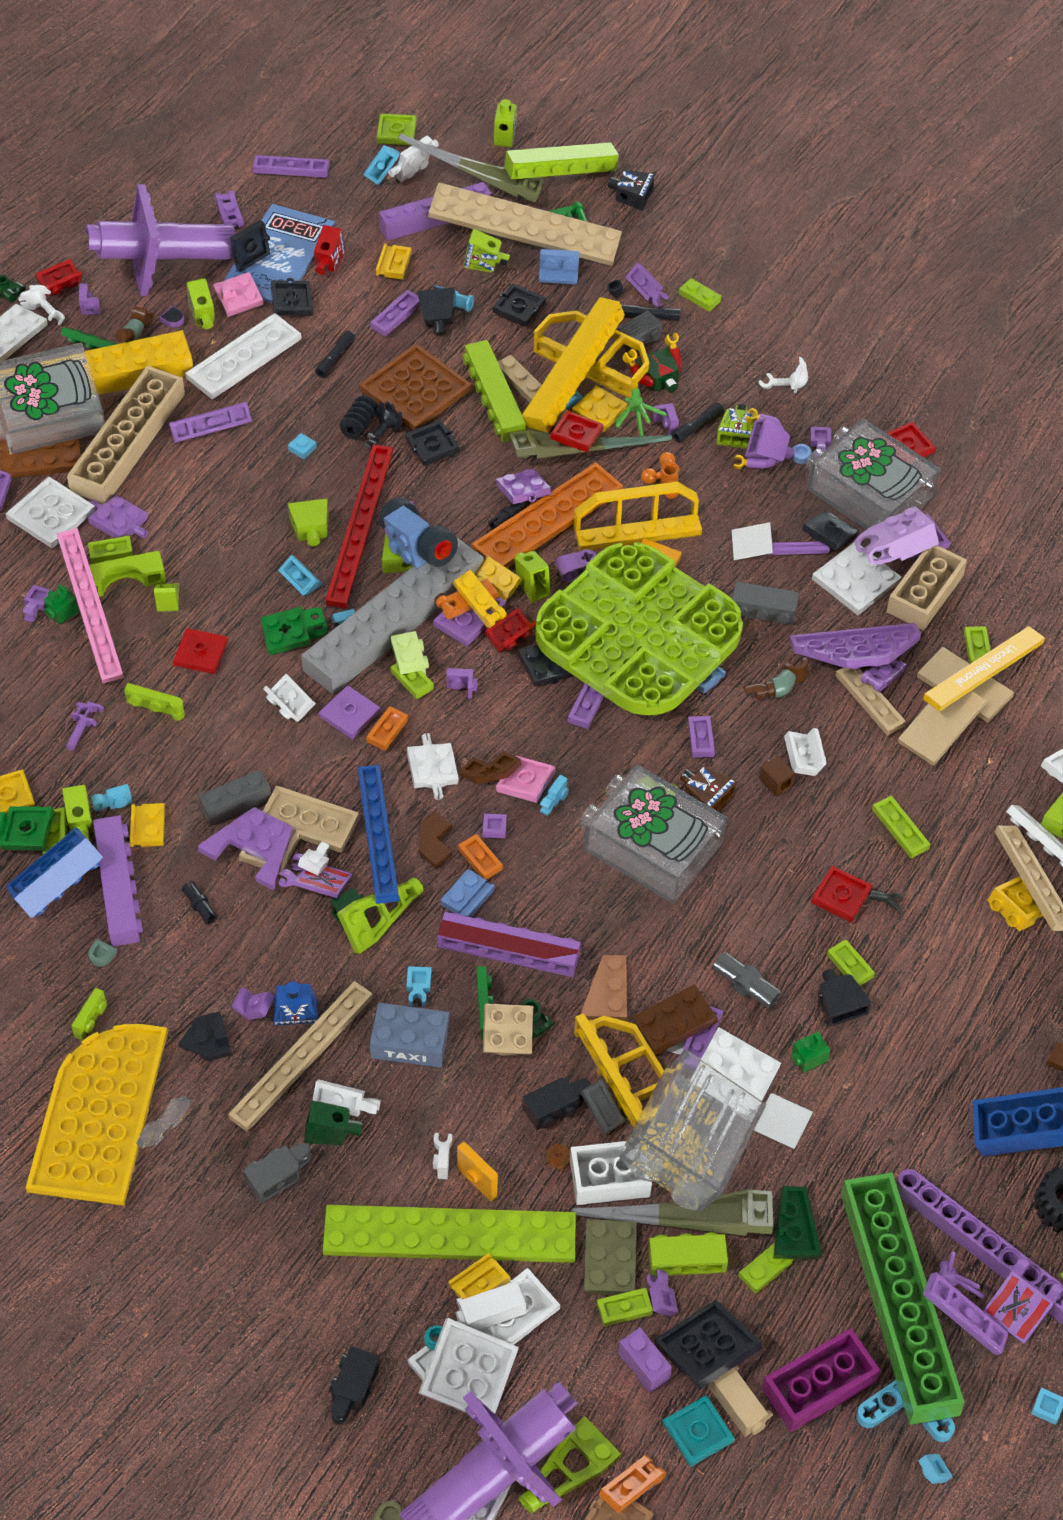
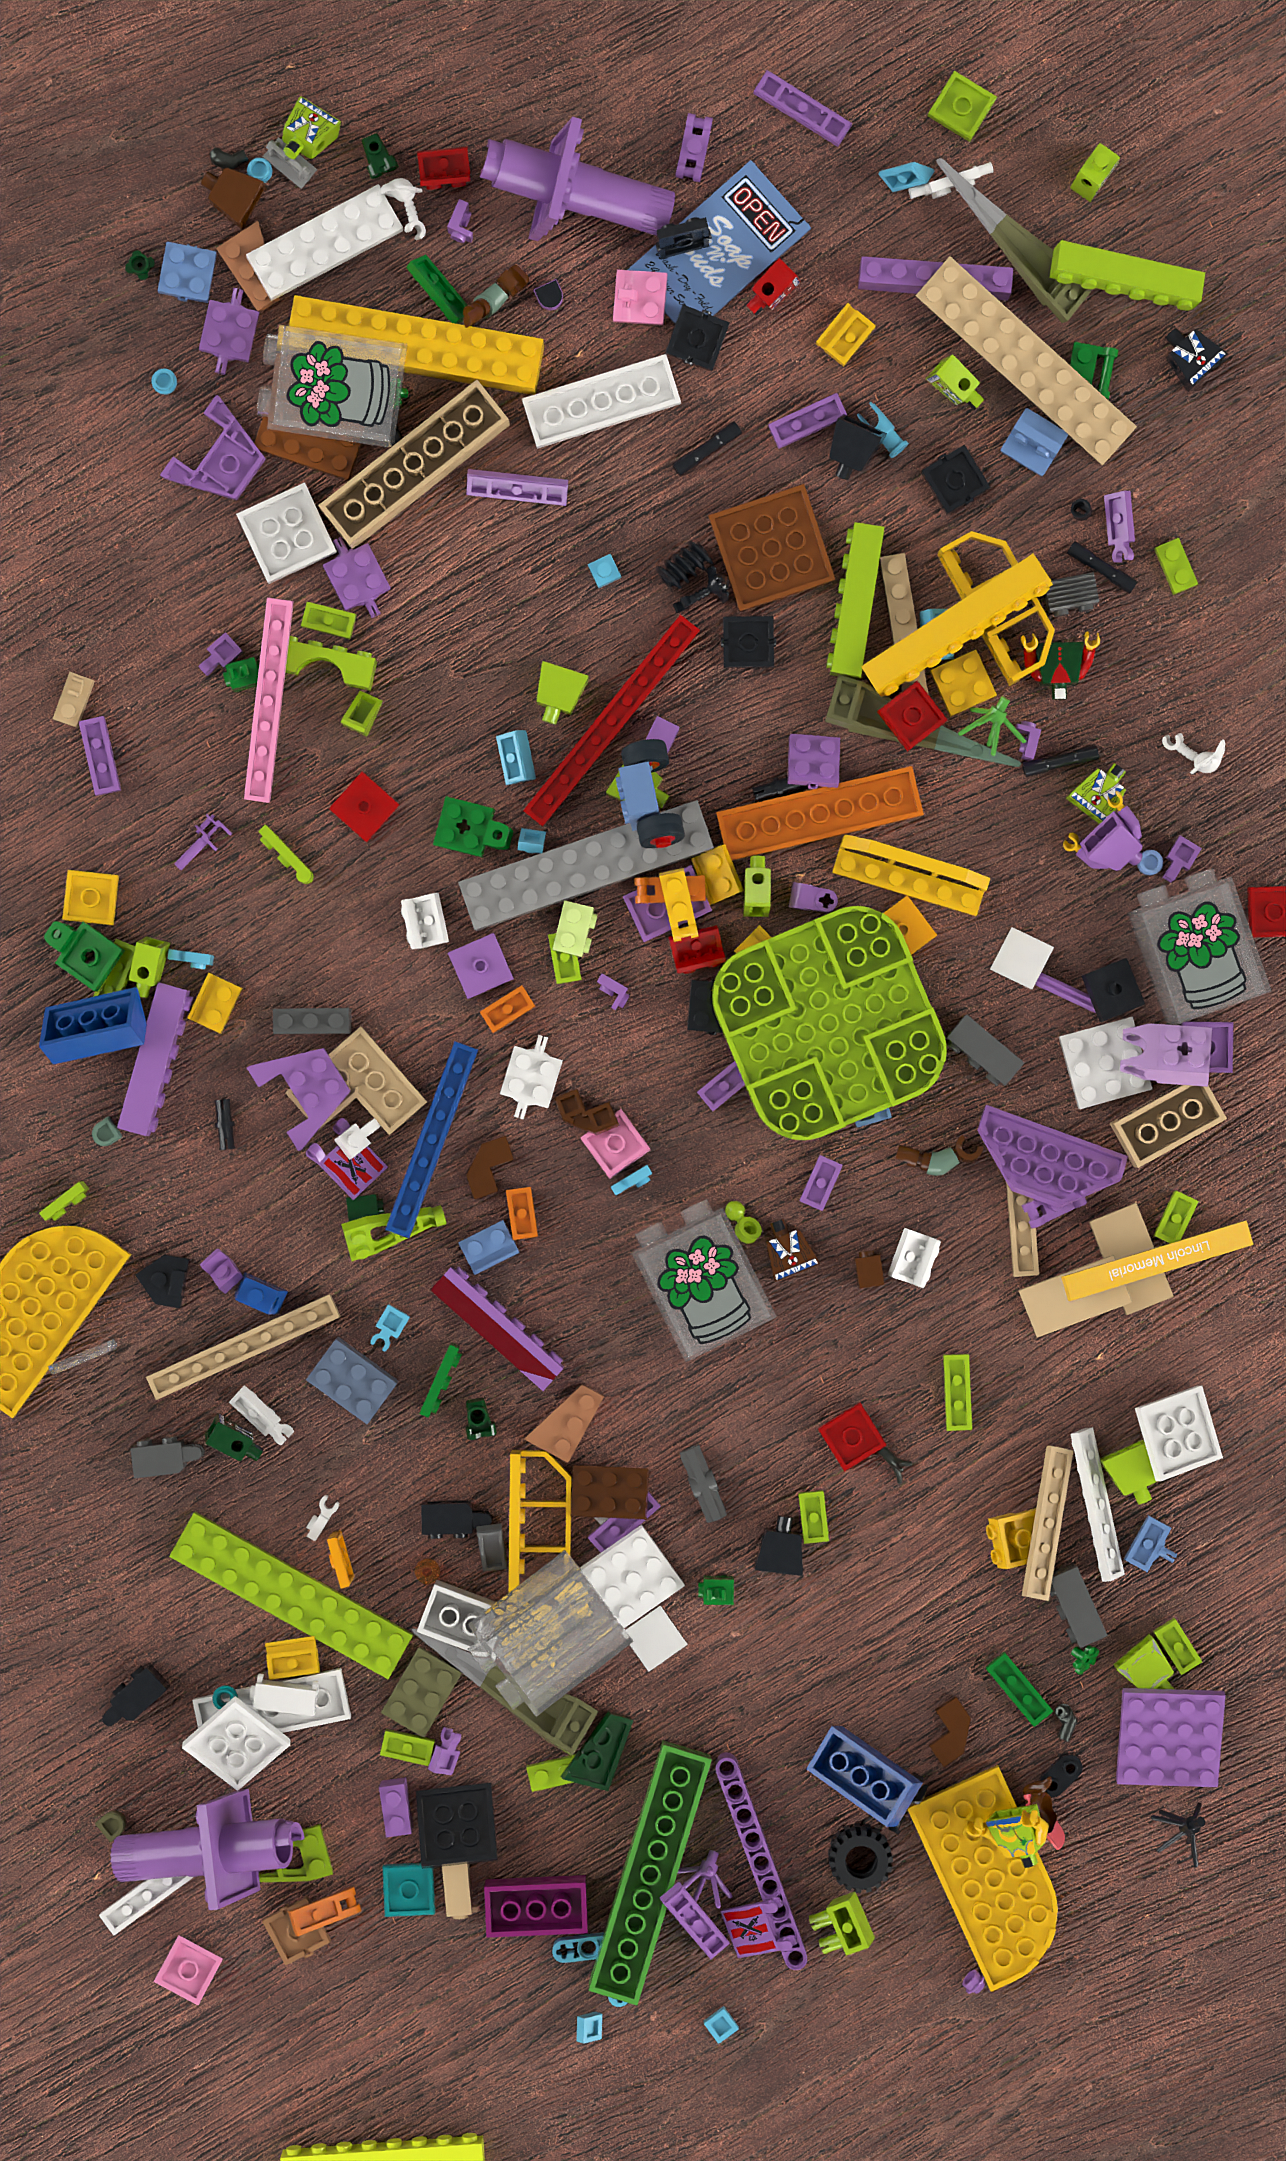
camera: 30 degrees right, 35 degrees up
(201, 310) = (586, 291): lime torso -> none
(494, 826) = (554, 1183): medium lavender plate -> none
(507, 1029) = (443, 1427): tan plate -> none
(668, 473) = (961, 814): orange piece -> none
(688, 1254) = (489, 1728): lime brick -> none

